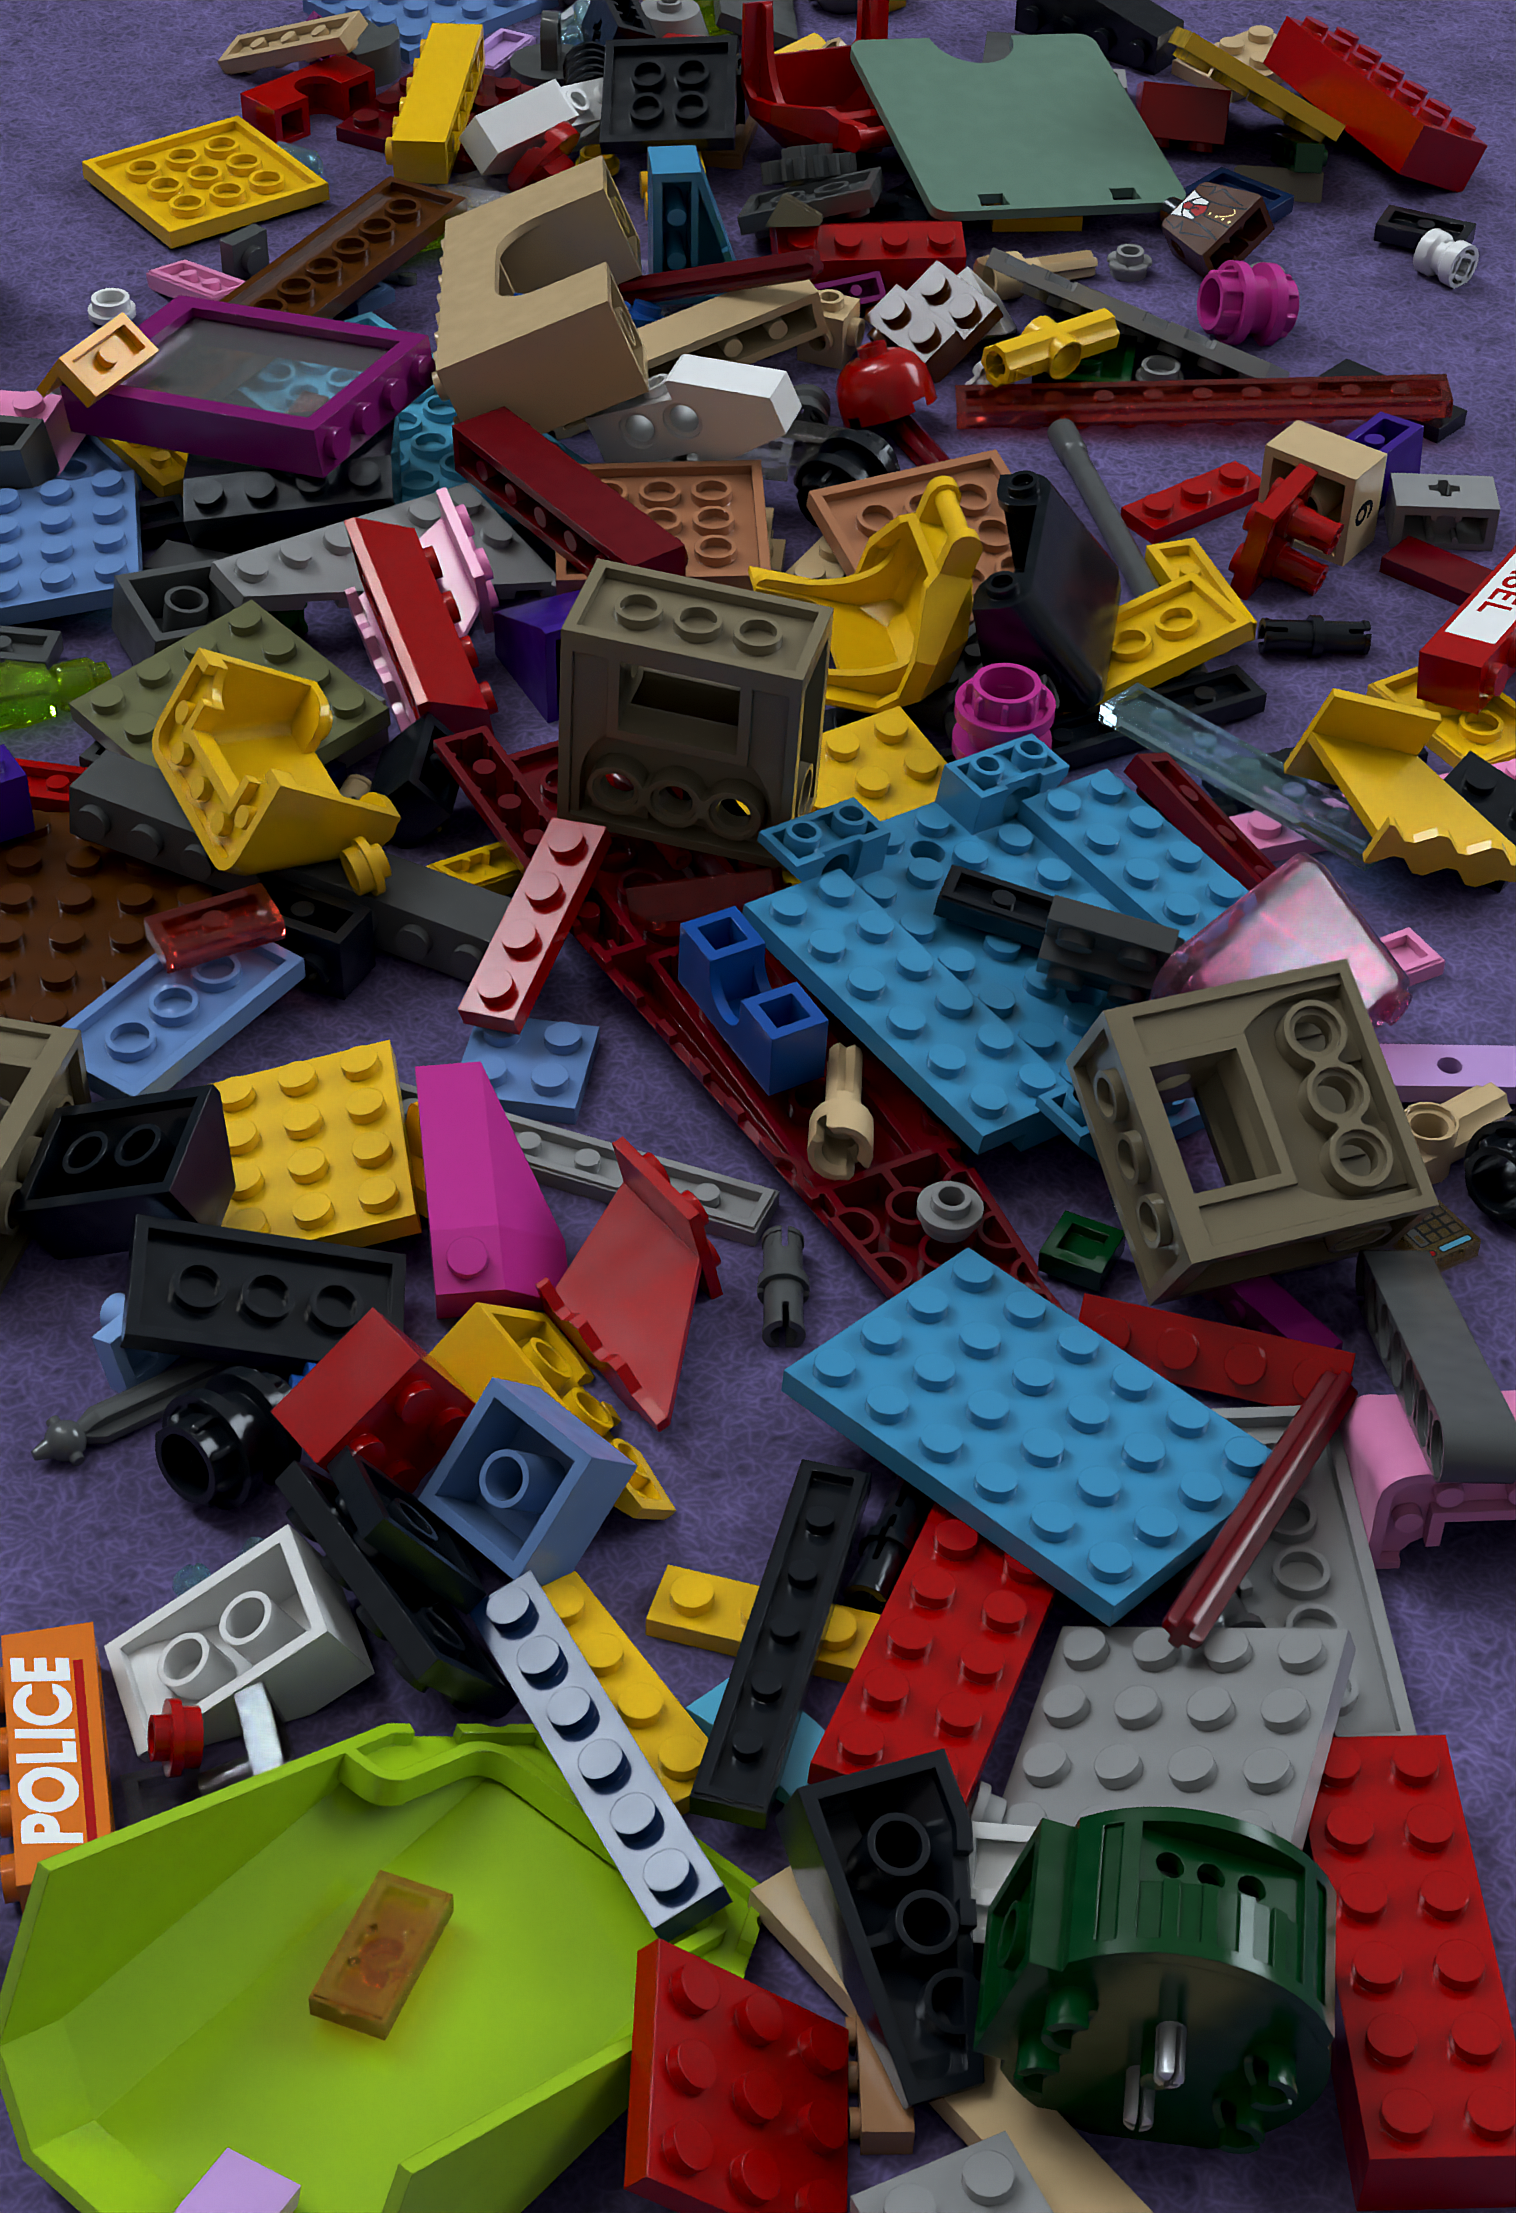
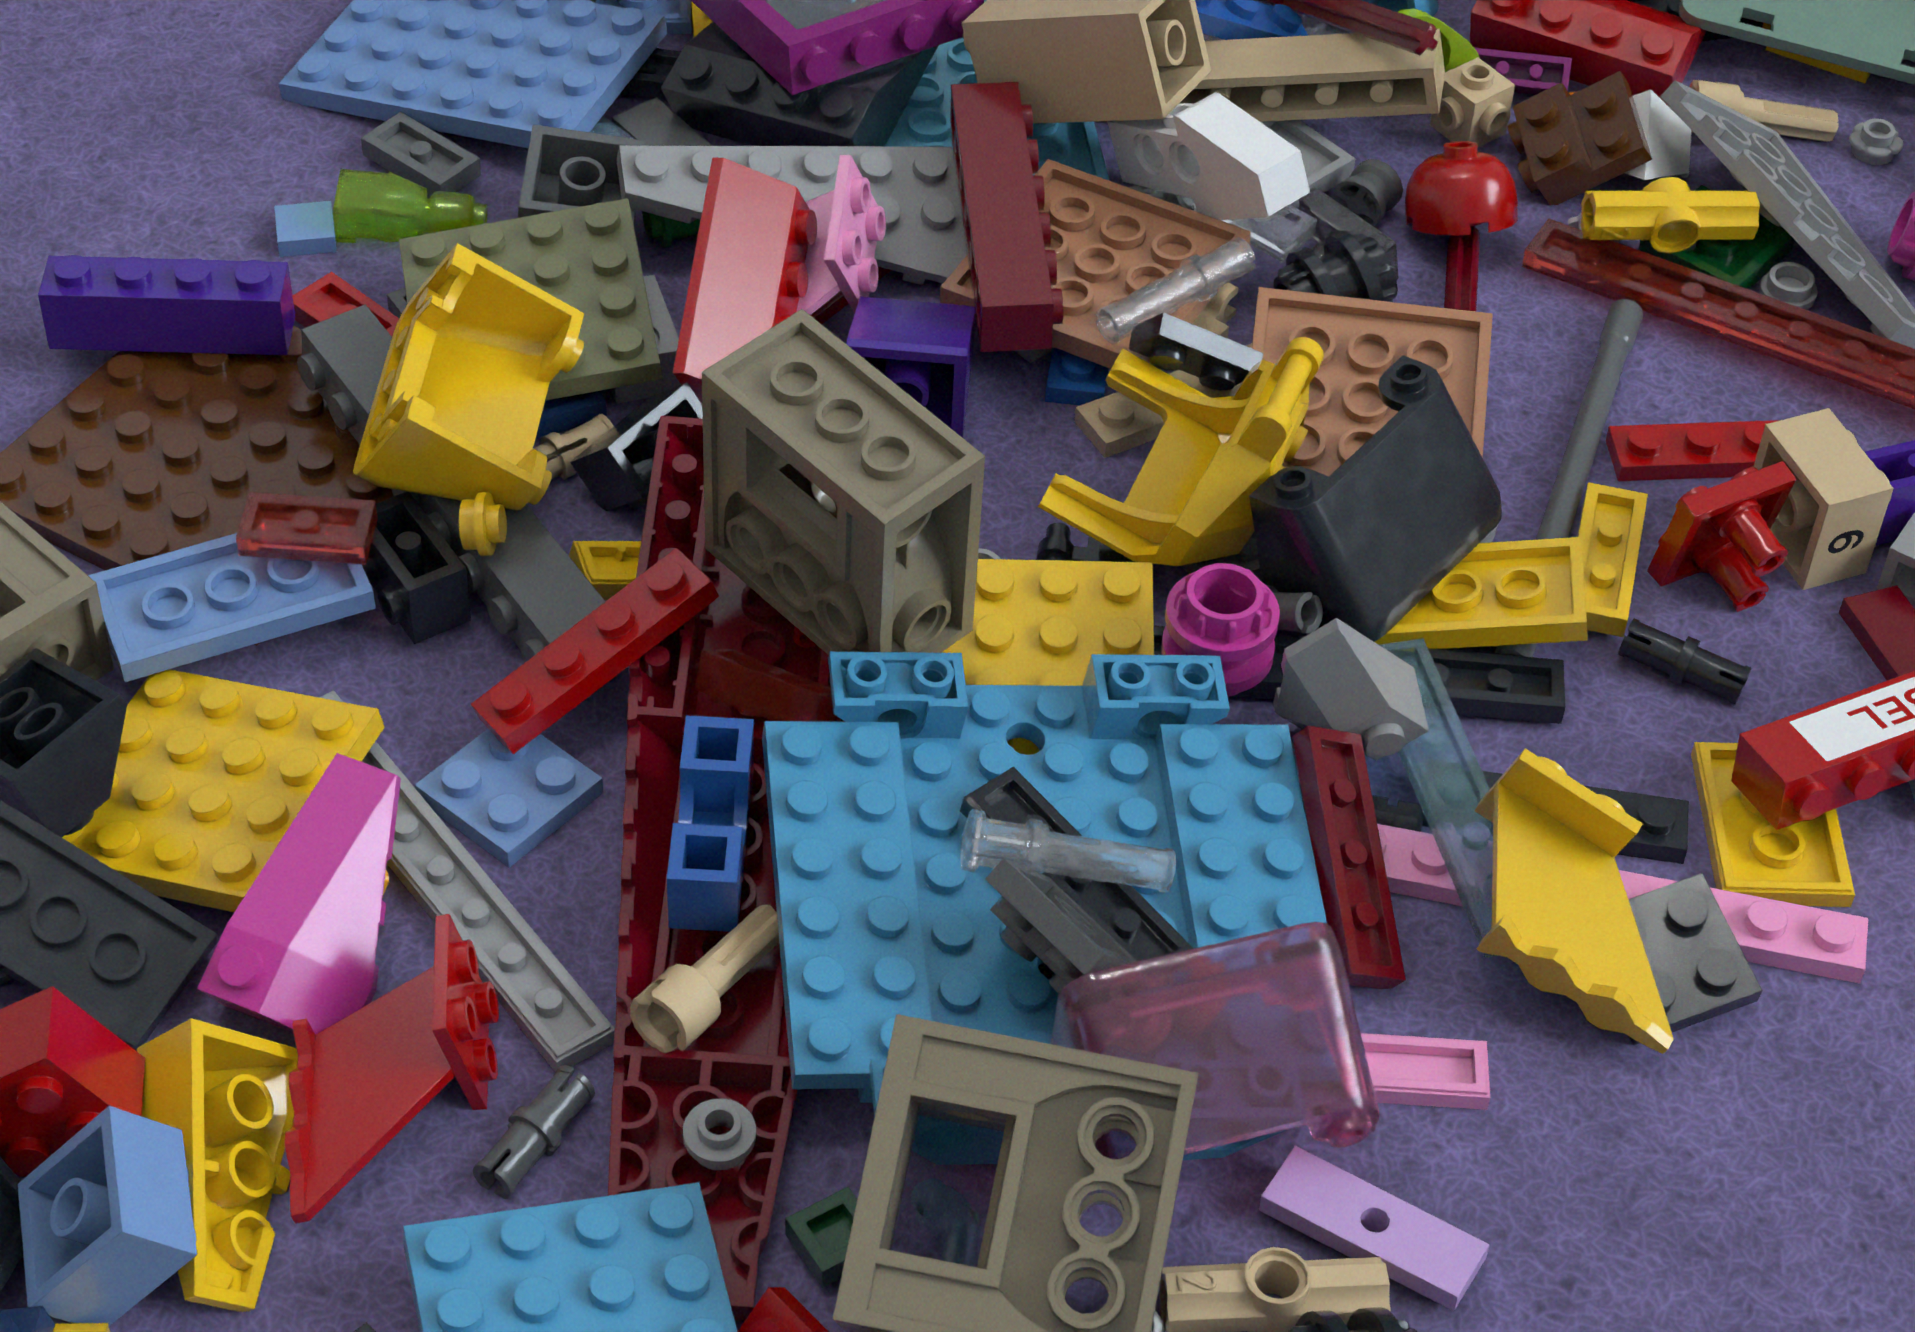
camera: 30 degrees right, 5 degrees up
(760, 501) = (1194, 280): none -> clear pin
(803, 549) = (1189, 348): none -> black plate
(1009, 910) = (1035, 847): none -> clear pin
(1126, 720) = (1351, 686): none -> light grey slope

